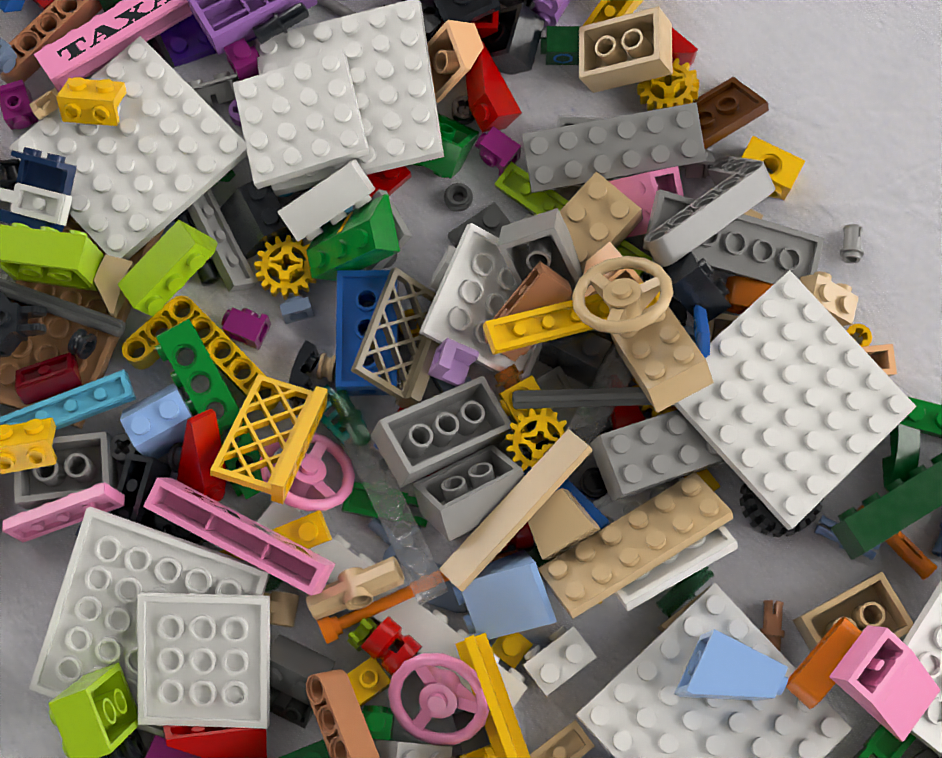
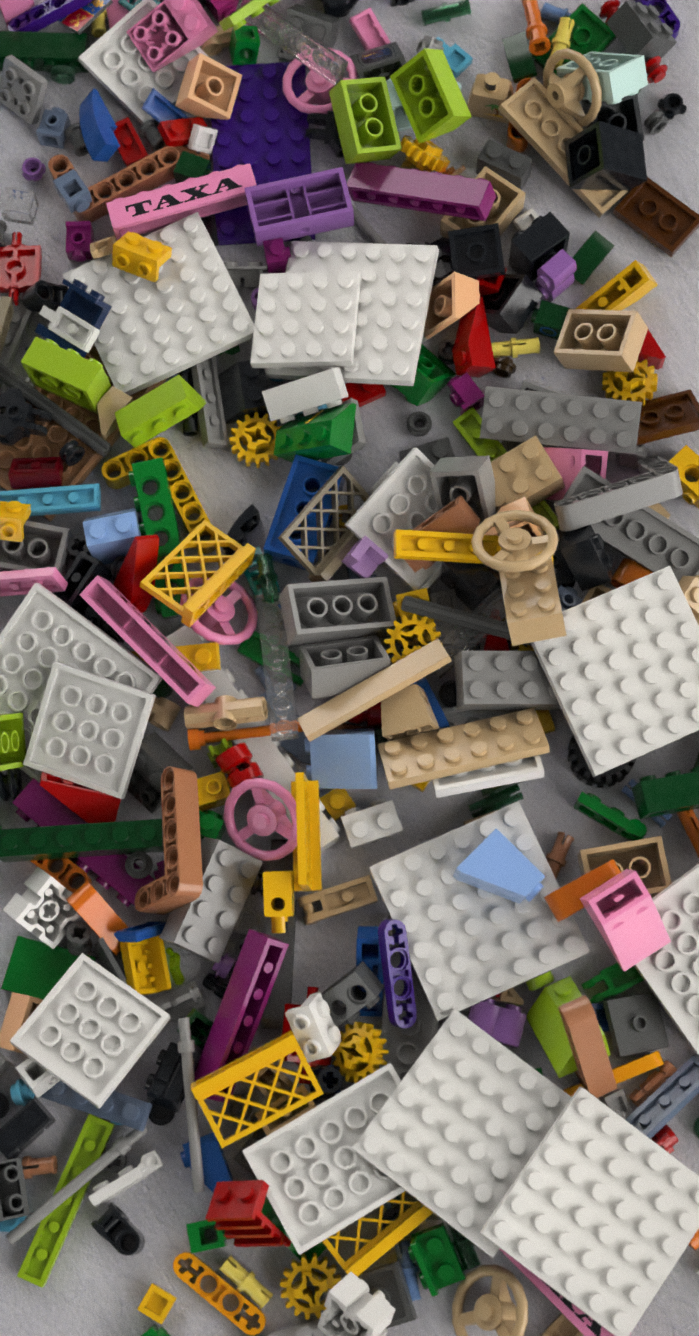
camera: 25 degrees right, 0 degrees up
(246, 326) = (208, 479): magenta brick -> none
(280, 22) = (316, 234): black axle -> none
(296, 309) = (253, 477): sand blue plate -> none
(326, 367) = (261, 531): tan bush -> none
(508, 377) = (407, 583): clear orange plate -> none
(530, 109) = (504, 367): none -> dark brown plate
(535, 84) = (516, 347): none -> light yellow pin
(701, 330) = (575, 593): blue tile -> none
(814, 566) = (610, 817): none -> green hinge

